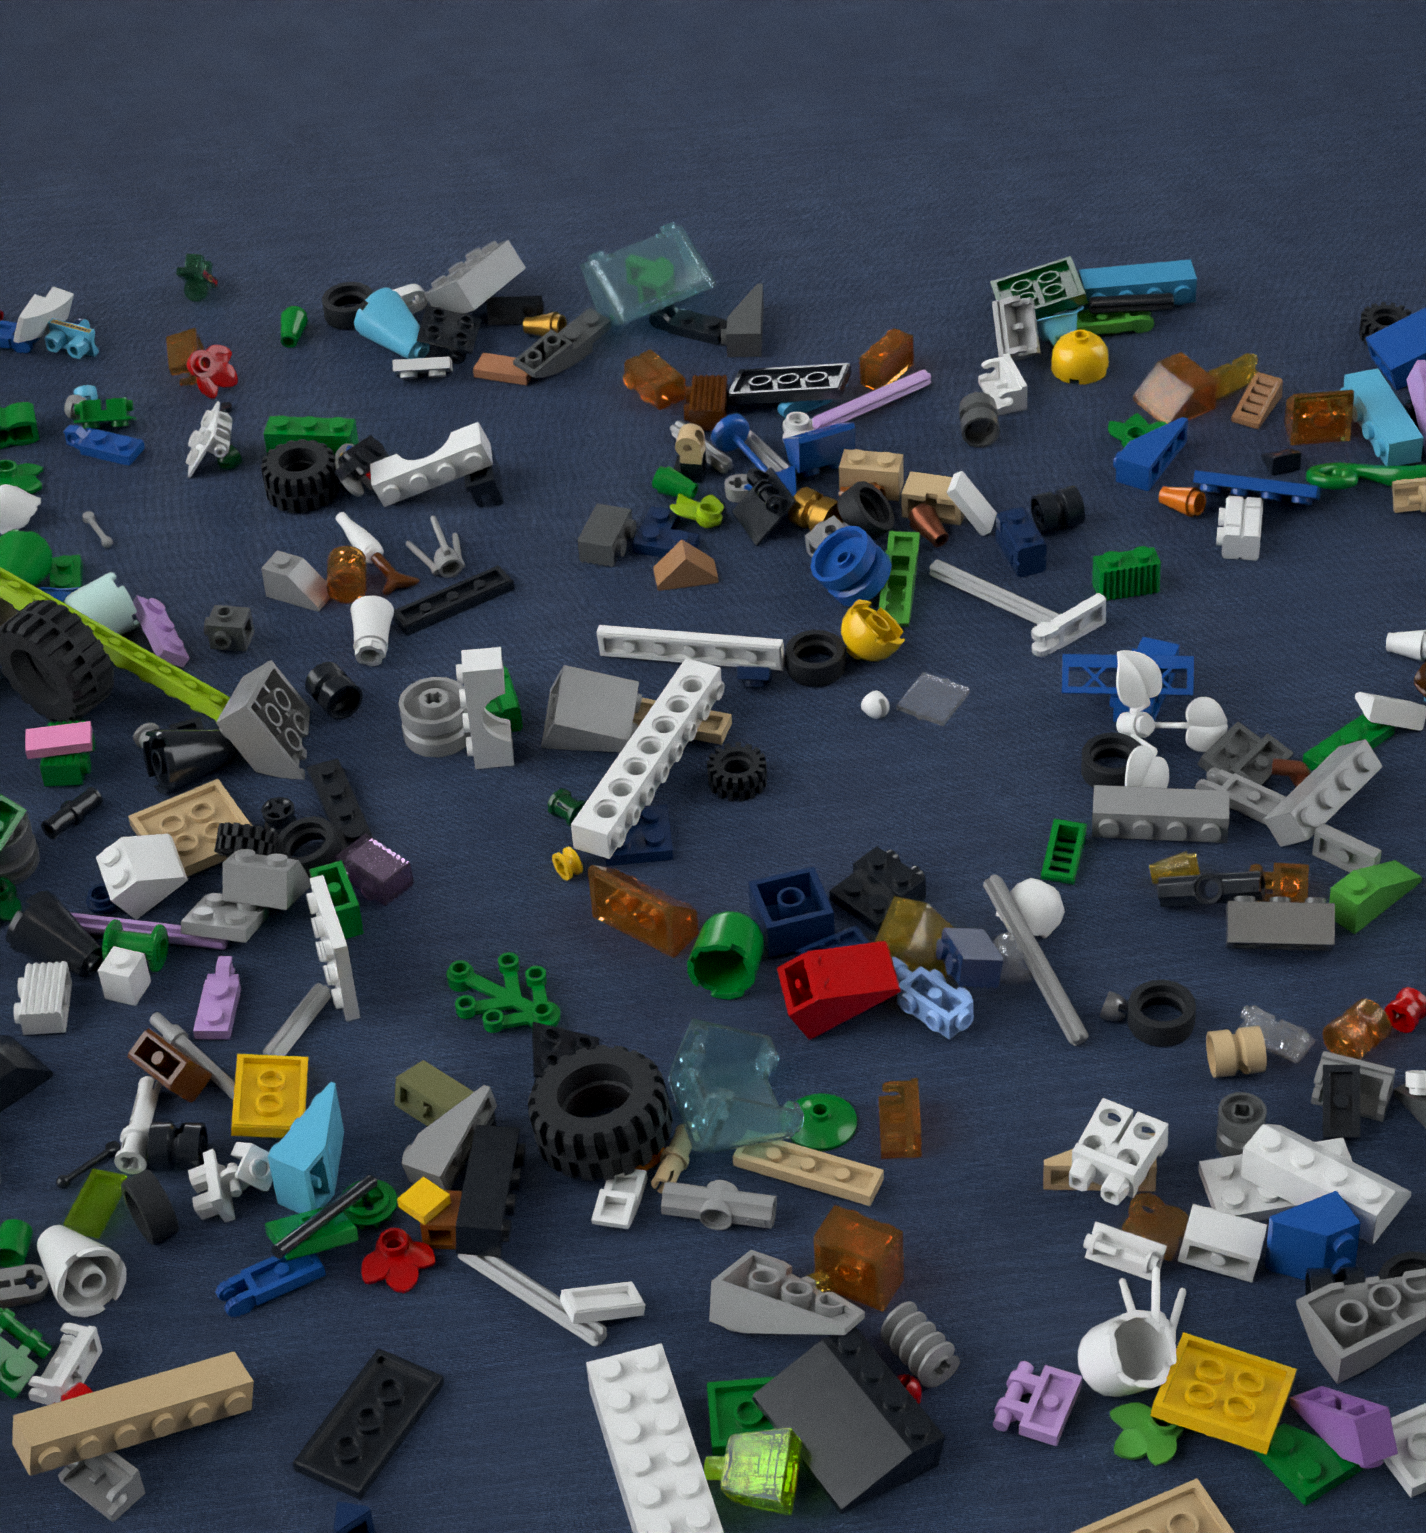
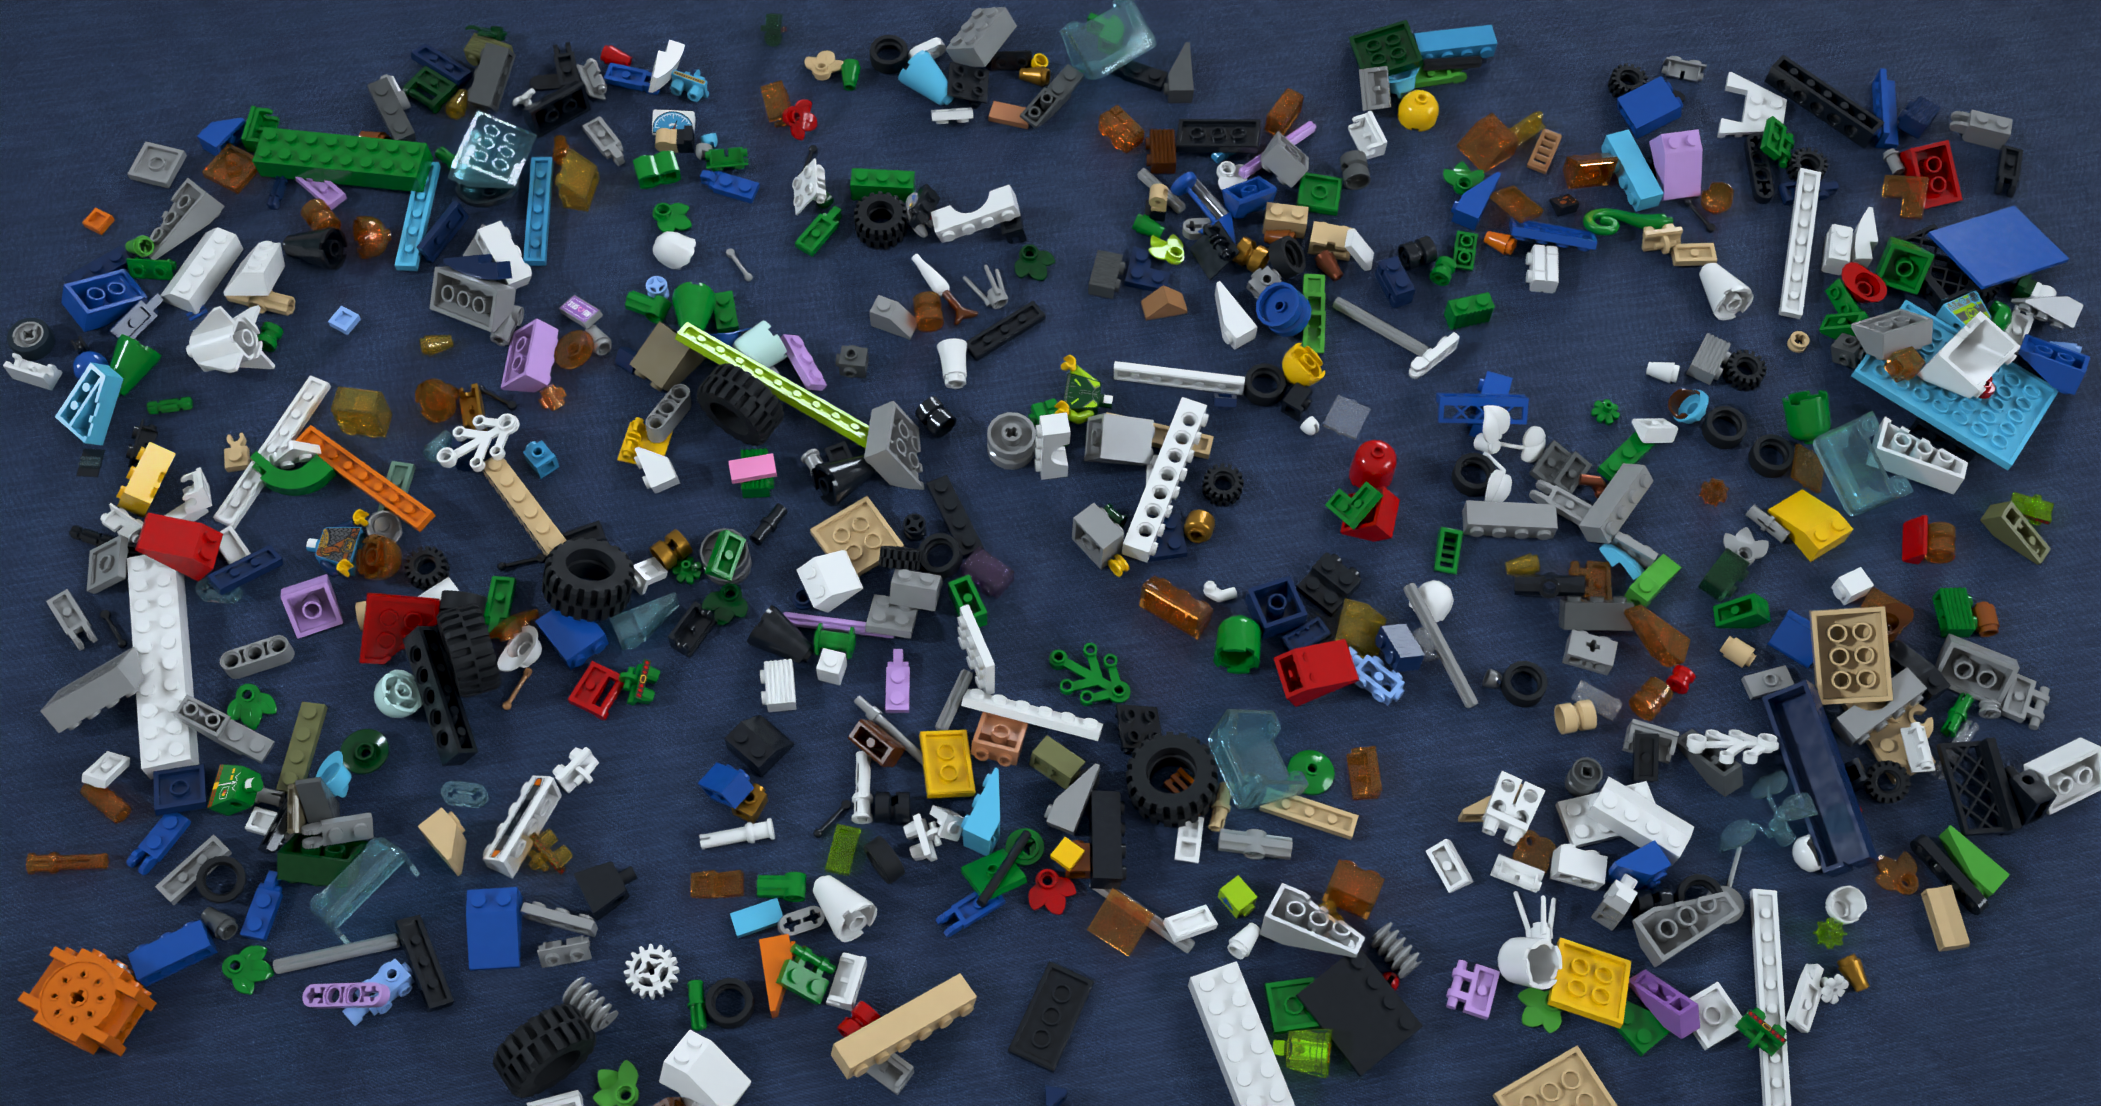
camera: 10 degrees left, 20 degrees up
(42, 378) = (672, 119): none -> slope
(45, 396) = (675, 140): none -> leg
(214, 490) = (819, 231): none -> green hinge
(257, 319) = (823, 65): none -> tan plate
(354, 1064) = (998, 739): none -> nougat plate
(422, 1039) = (1039, 716): none -> white plate
(495, 1296) = (1121, 922): none -> clear orange plate
(506, 524) = (1035, 265): none -> dark green plate
(537, 819) = (1097, 535): none -> light grey brick
(539, 663) = (1081, 394): none -> torso
(553, 306) = (1039, 60): none -> yellow hinge
(681, 1270) = (1238, 897): none -> lime brick
(682, 1329) = (1243, 941): none -> white cone
(693, 817) = (1199, 526): none -> pearl gold head
(711, 902) = (1218, 595): none -> white arm
(784, 589) = (1235, 323): none -> white slope
(859, 675) = (1297, 401): none -> black brick
(877, 407) = (1284, 160): none -> light grey slope
(921, 795) = (1354, 509): none -> green plate
(927, 447) = (1320, 193): none -> green plate
(952, 806) = (1379, 521): none -> red slope
(960, 746) = (1373, 463): none -> red cylinder
(1021, 1242) = (1449, 865): none -> white slope
(1094, 530) = (1443, 270): none -> green wheel
(1129, 510) = (1465, 250): none -> green slope
(1209, 455) = (1516, 204): none -> clear orange plate
(1267, 974) = (1600, 657): none -> light grey brick
(1274, 1288) = (1616, 902): none -> light grey hips
(1321, 692) = (1605, 411): none -> green plant
(1321, 859) = (1615, 555): none -> medium azure slope
(1372, 949) = (1658, 637): none -> clear orange slope

